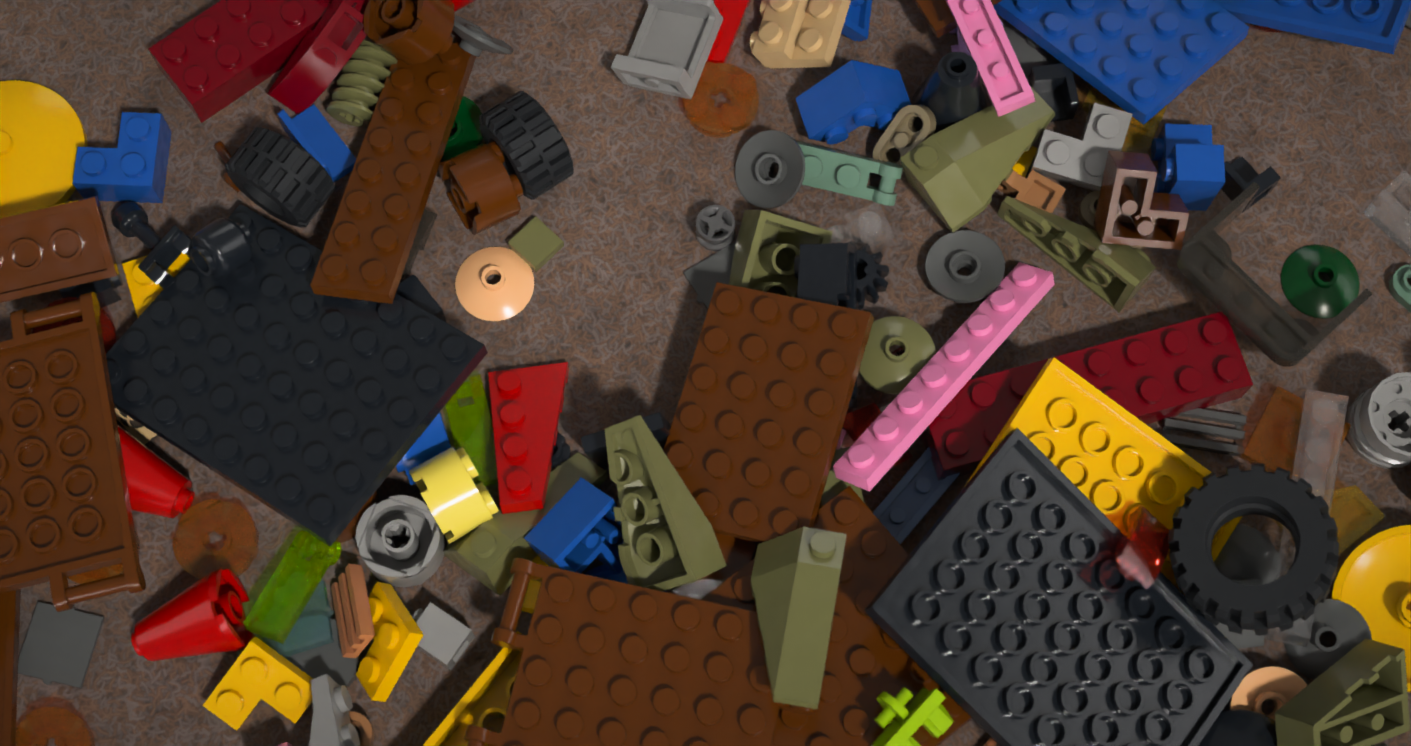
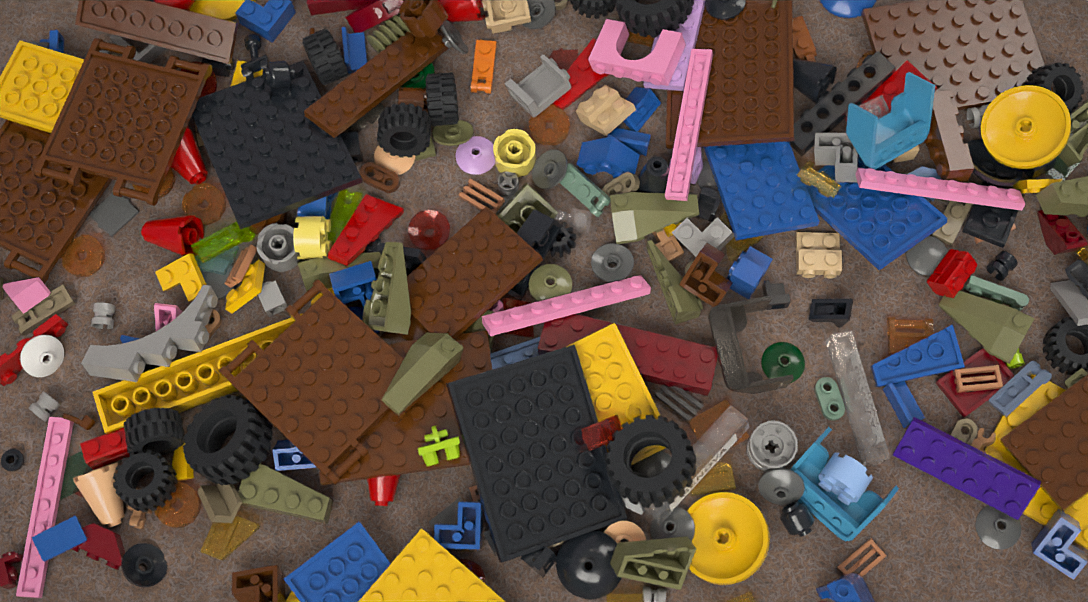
camera: 35 degrees right, 0 degrees up
(495, 329) = (380, 178): none -> reddish brown plate
(498, 229) = (404, 130): none -> black tyre
(551, 58) = (483, 66): none -> orange plate
(576, 195) = (453, 134): none -> olive dish
(630, 355) = (429, 220): none -> clear red dish
(635, 226) = (475, 163): none -> lavender dish
(695, 260) = (468, 189): none -> nougat tile
(699, 151) = (513, 142): none -> light yellow brick
(875, 50) = (634, 140): none -> blue panel
(1267, 83) = (818, 254): none -> tan plate
(1350, 156) = (831, 310): none -> black slope

